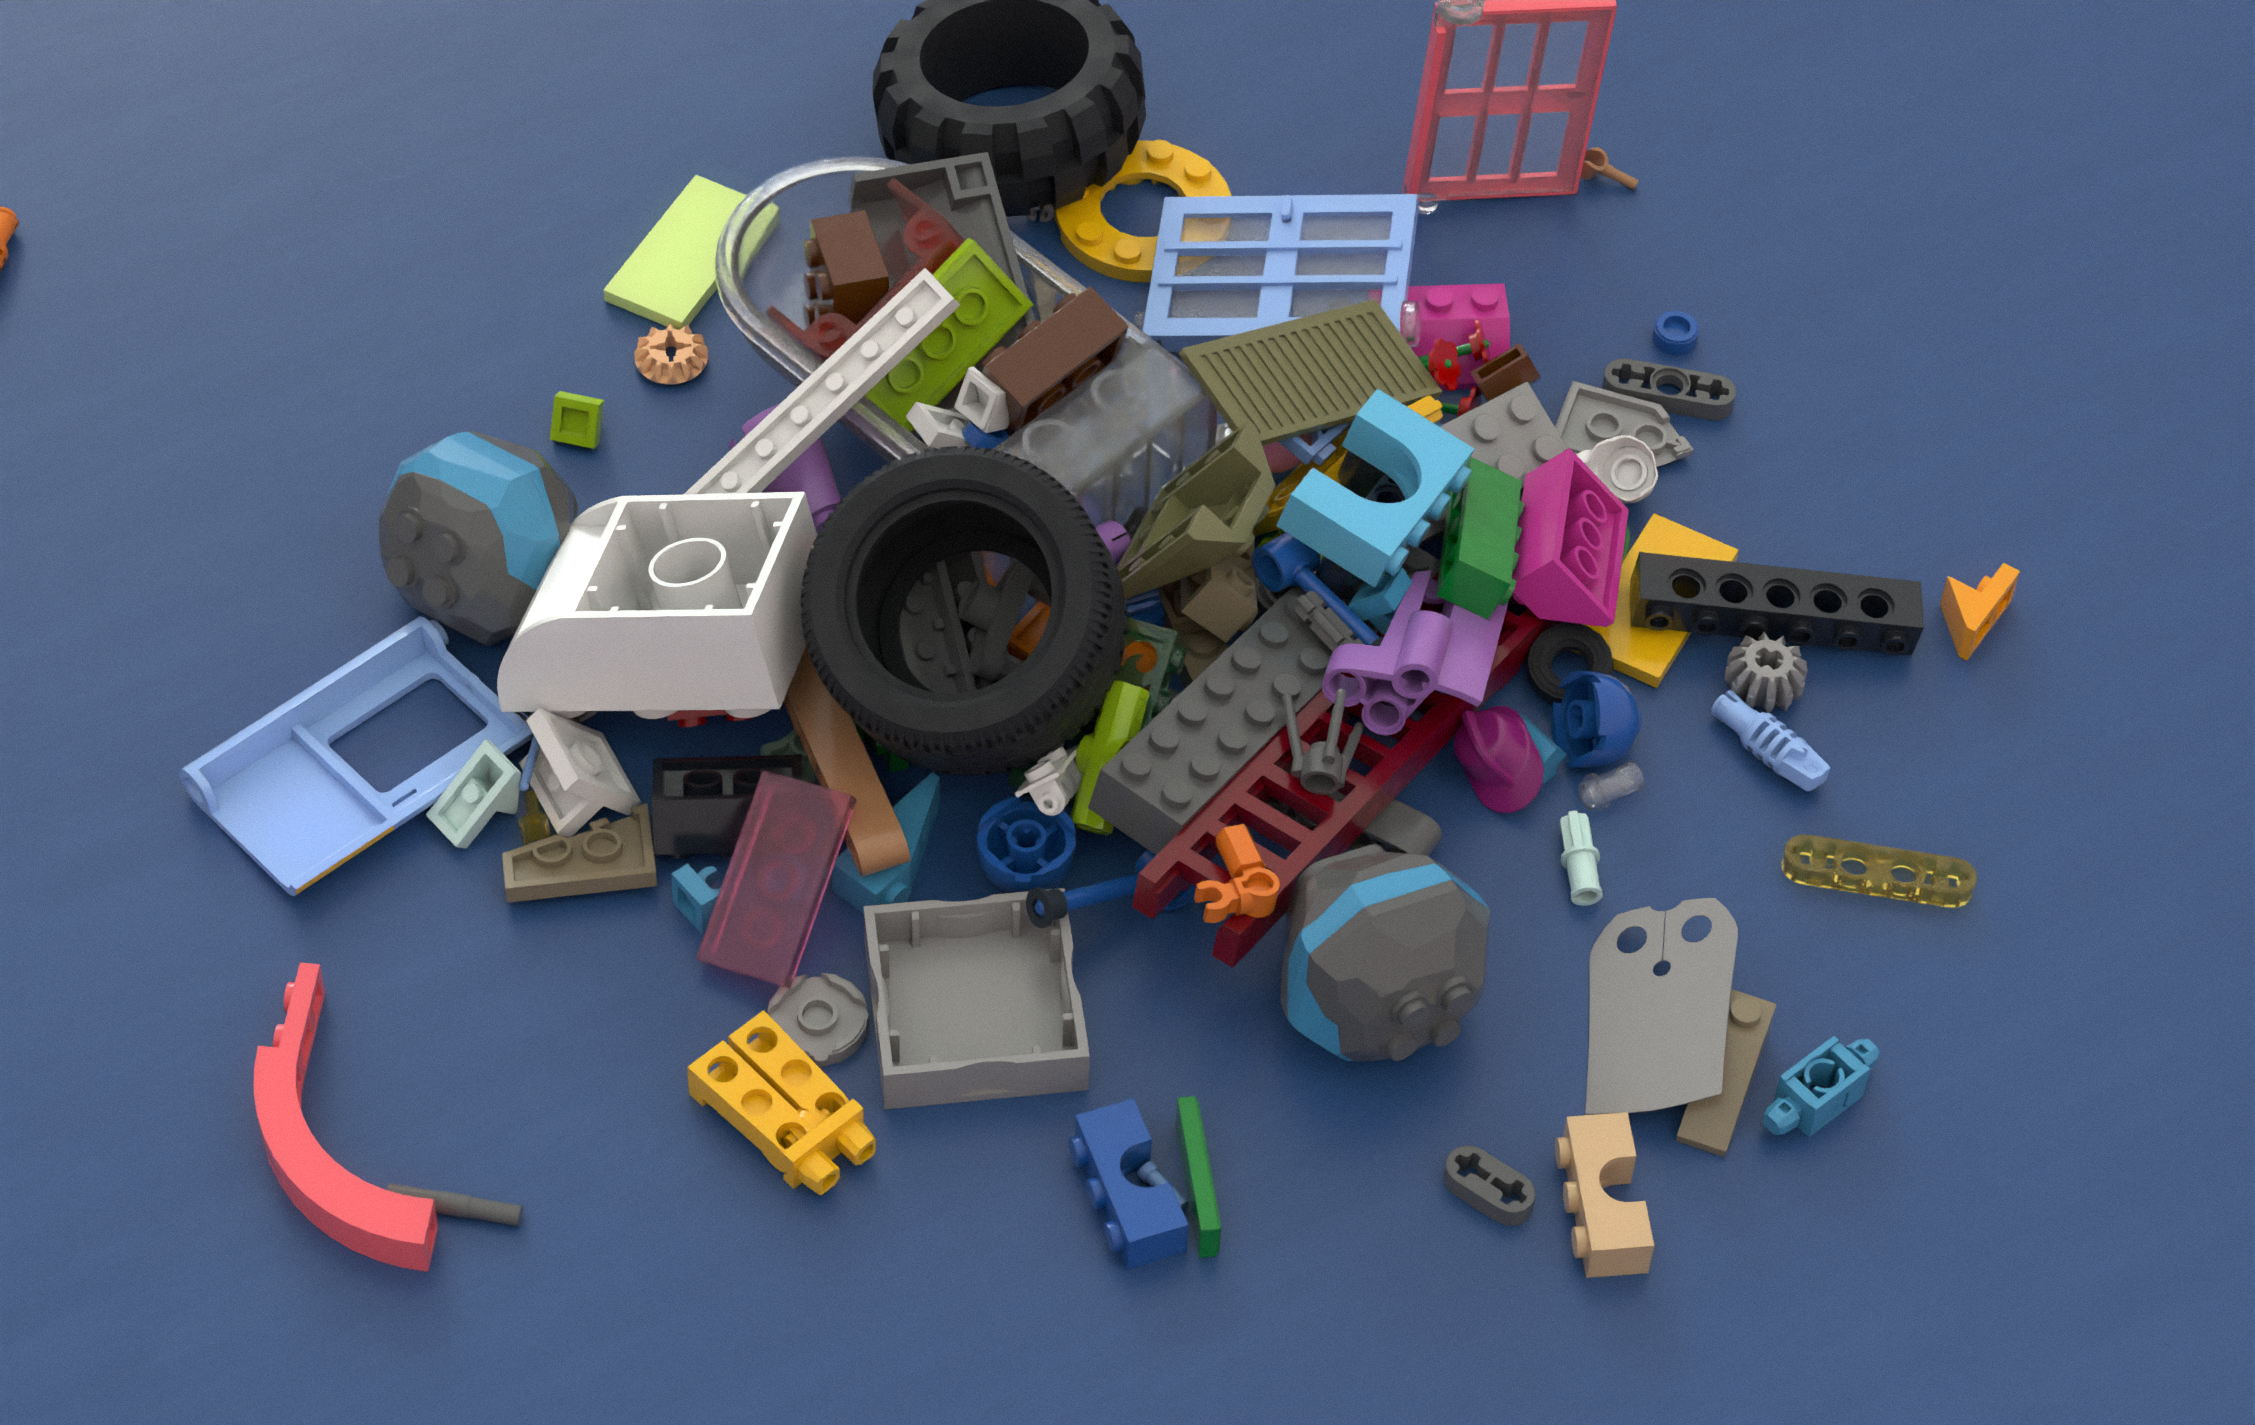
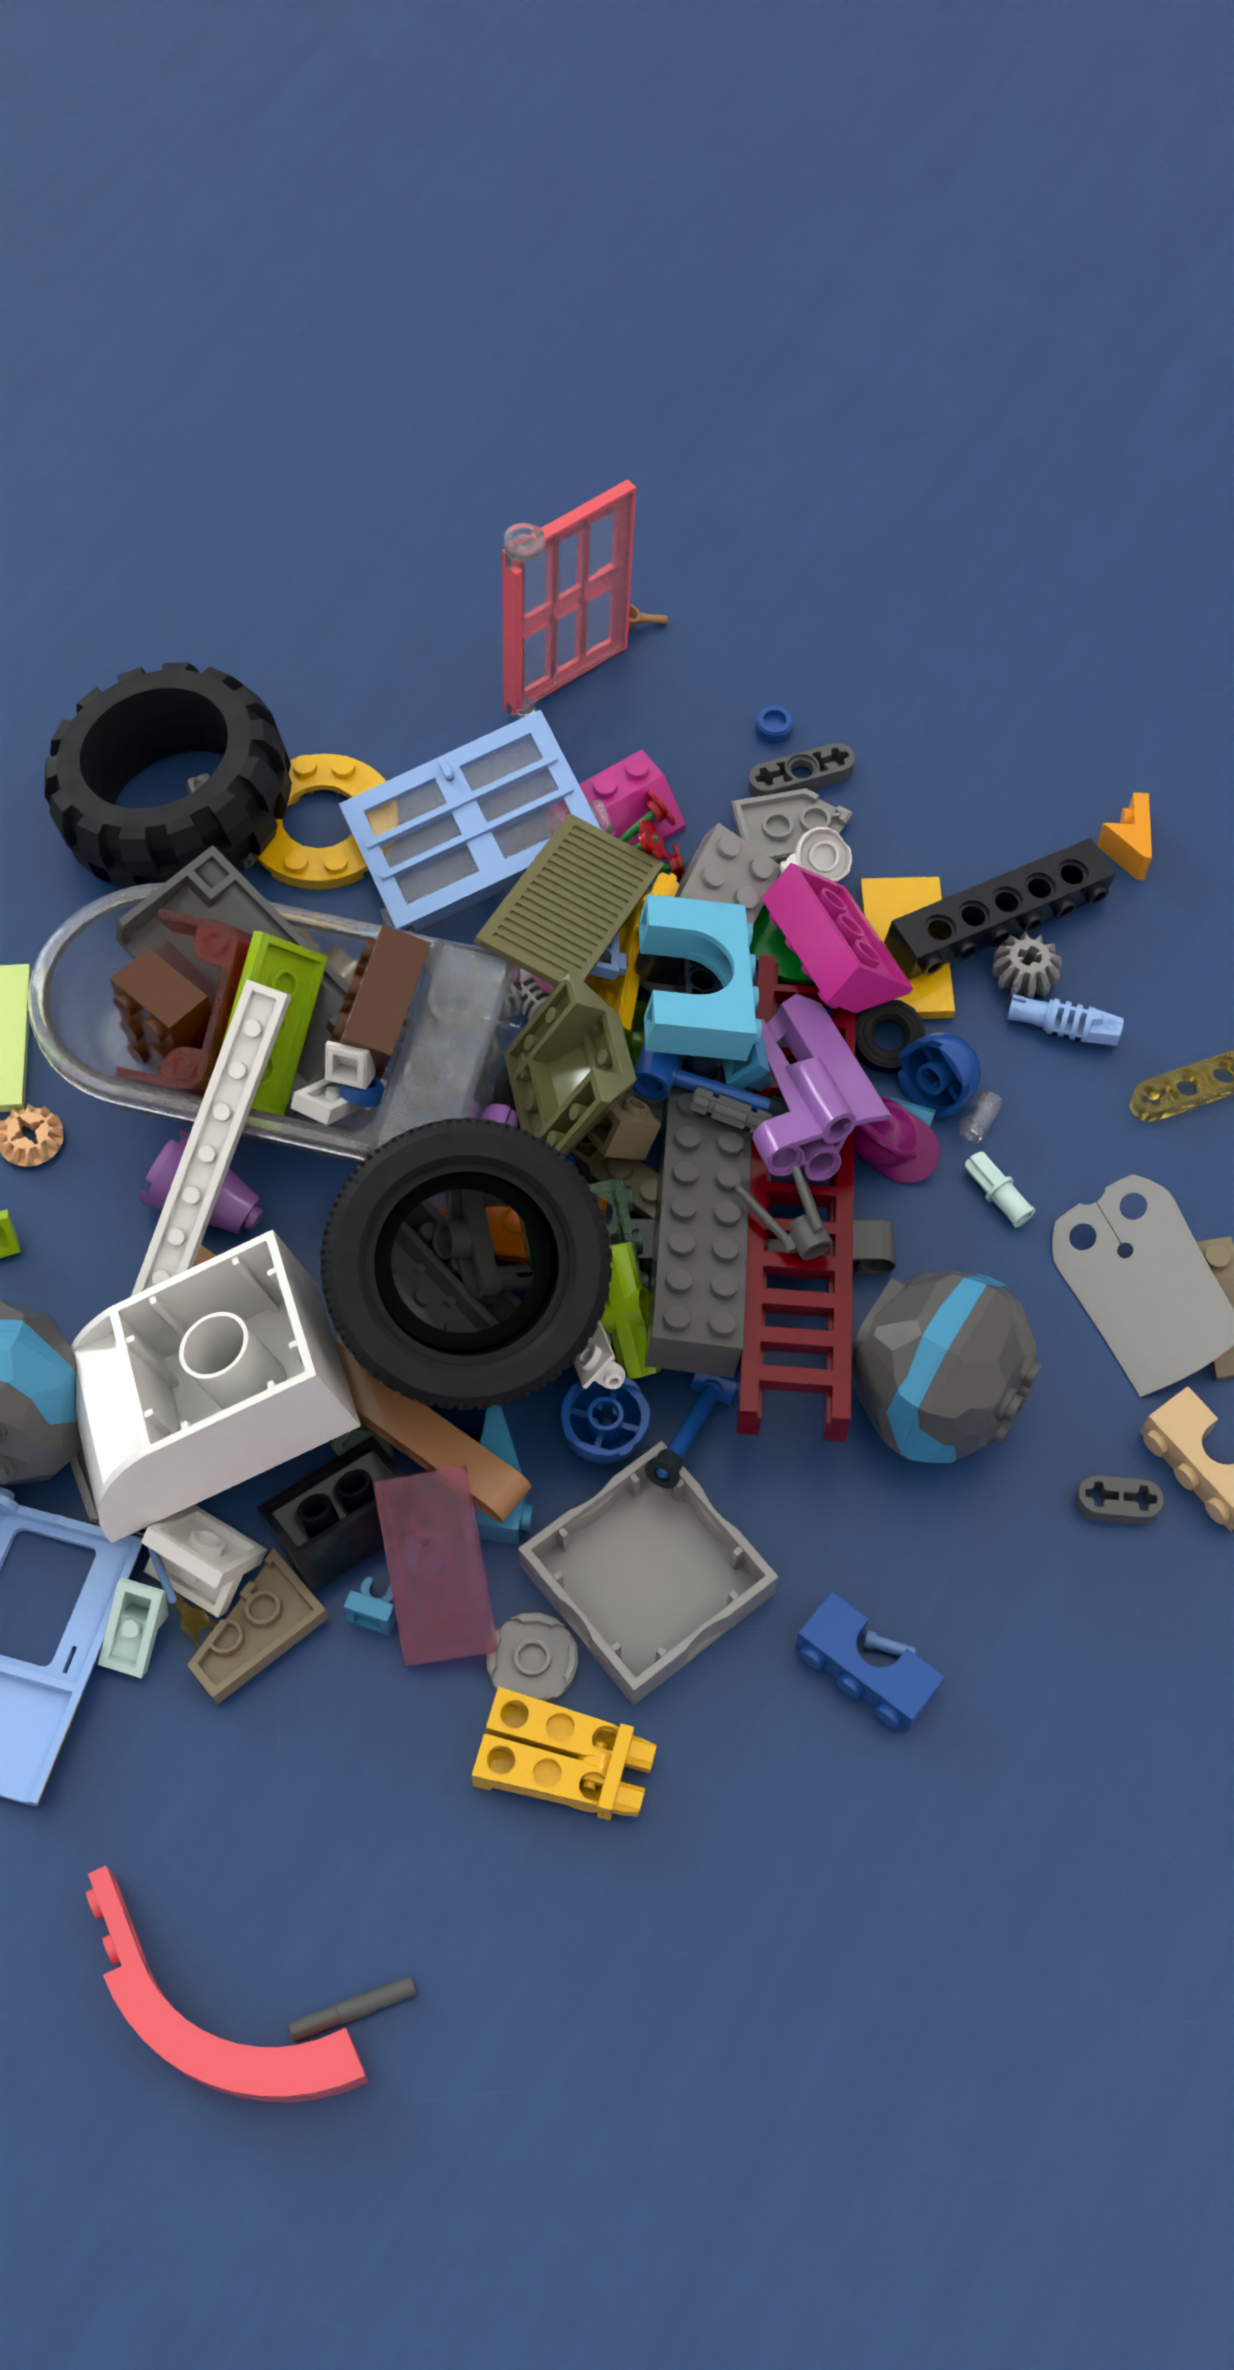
camera: 30 degrees left, 10 degrees up
(1198, 1176) = (914, 1624): green tile -> none
(1252, 886) = (838, 1372): orange bar -> none
(1481, 541) = (790, 981): green brick -> none
(1505, 372) = (698, 826): reddish brown piece -> none

